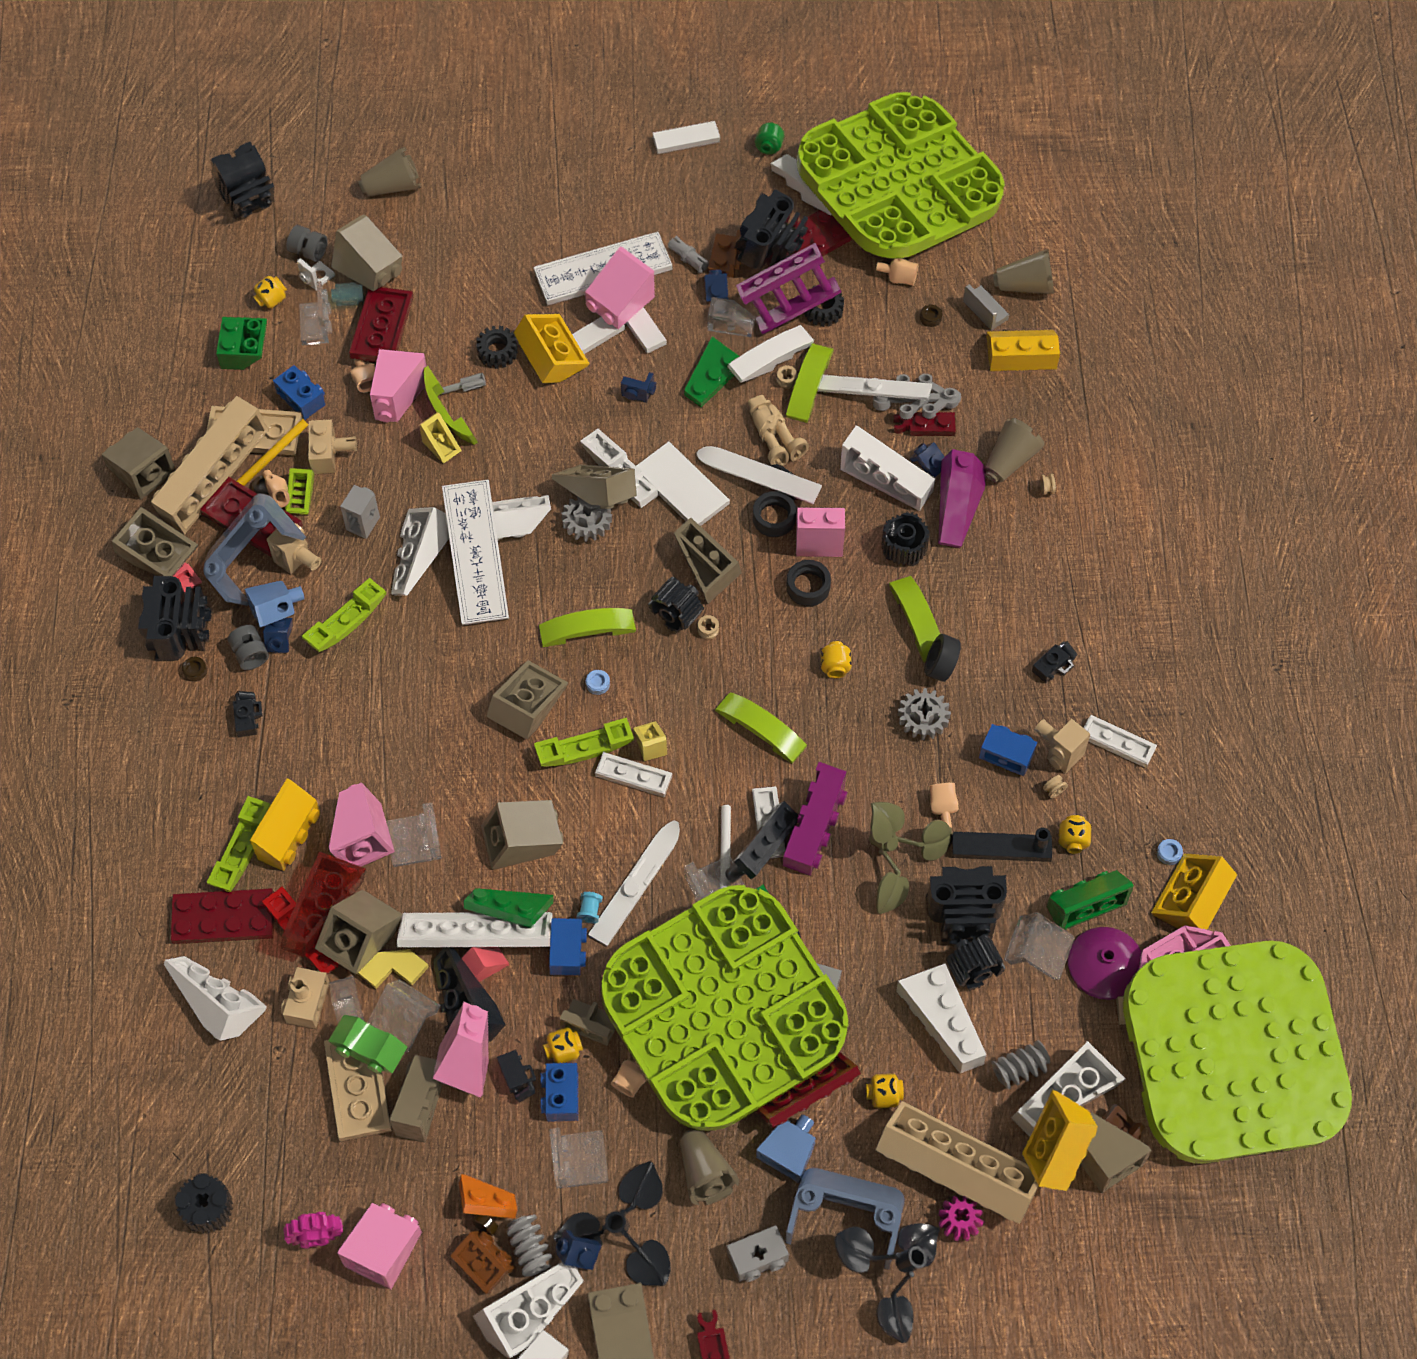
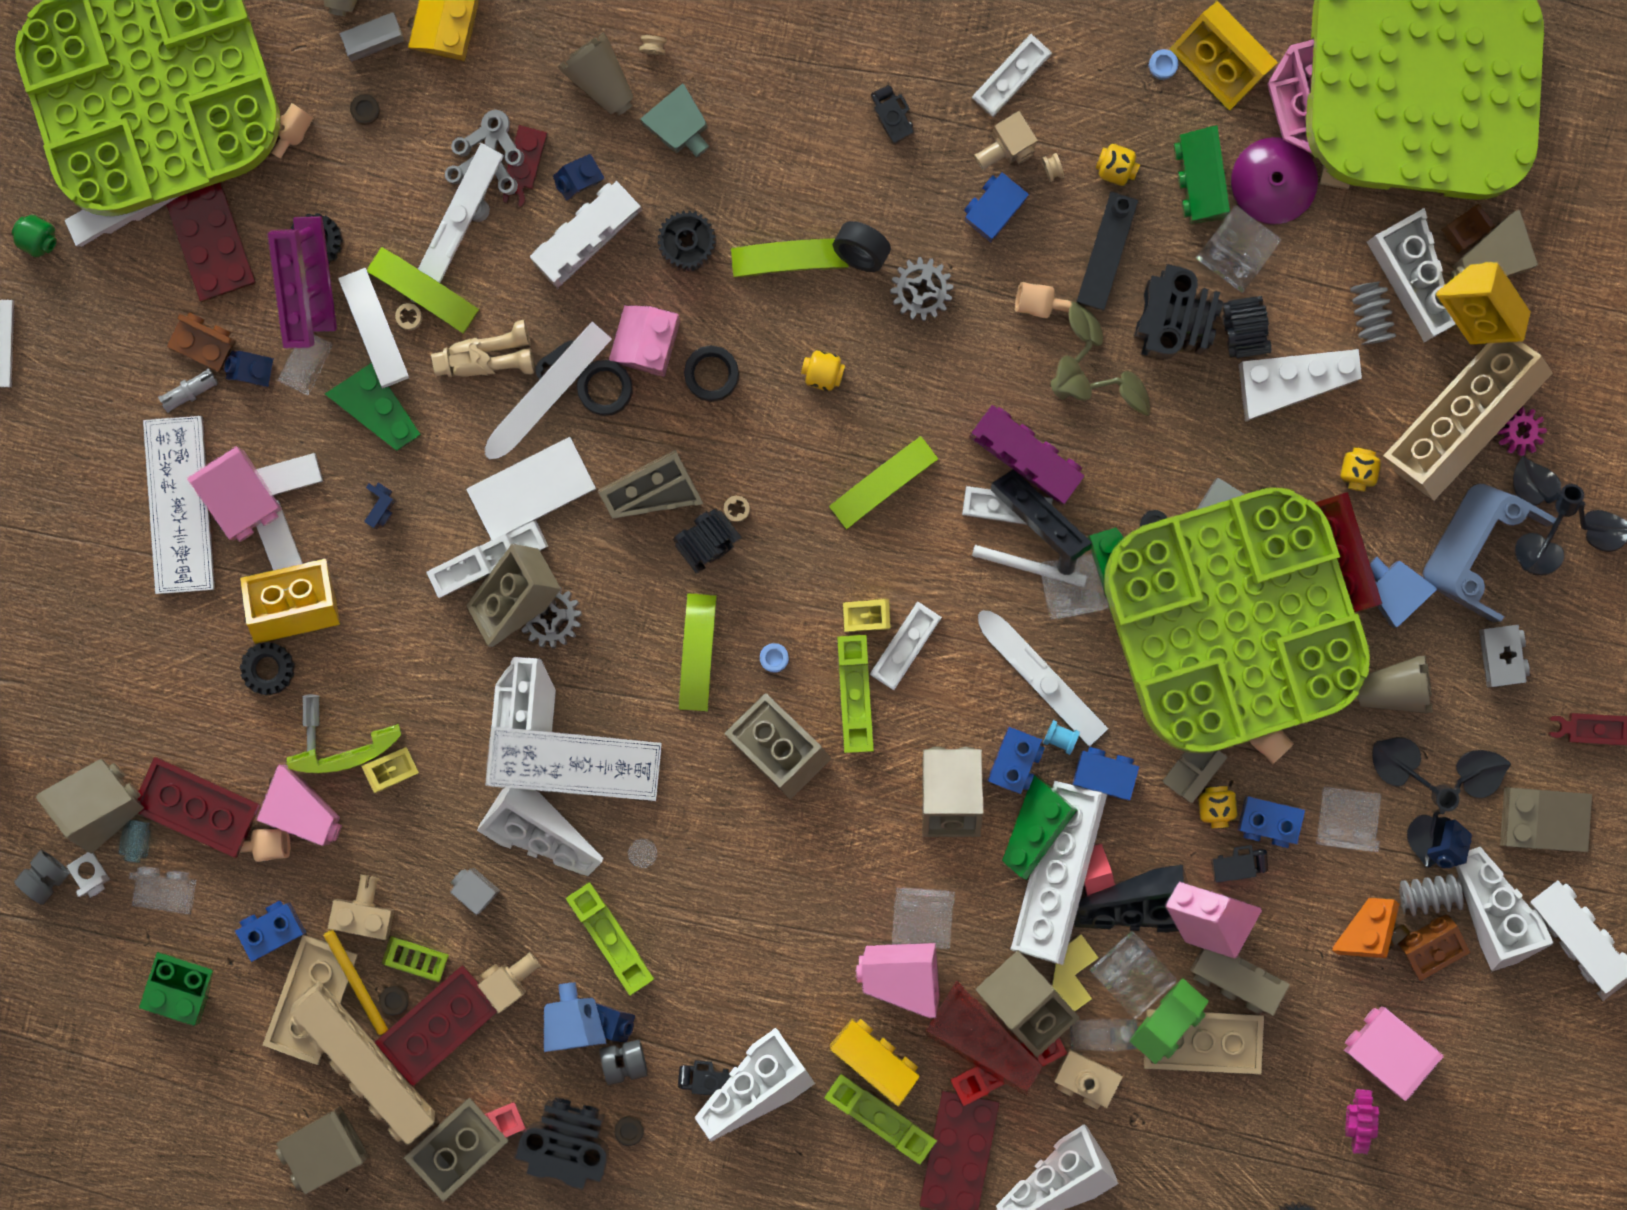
camera: 80 degrees left, 25 degrees up
(251, 750) = (760, 1084): none -> white wedge
(252, 518) = (470, 1013): sand blue windscreen -> none
(269, 292) = (104, 939): yellow head -> none
(276, 488) = (411, 987): light nougat piece -> none
(418, 626) = (642, 853): none -> clear tile
(560, 875) = (1015, 761): none -> blue brick
(768, 231) = (208, 279): black piece -> none
(959, 495) = (638, 155): magenta wedge -> none
(995, 513) = (677, 122): none -> sand green torso

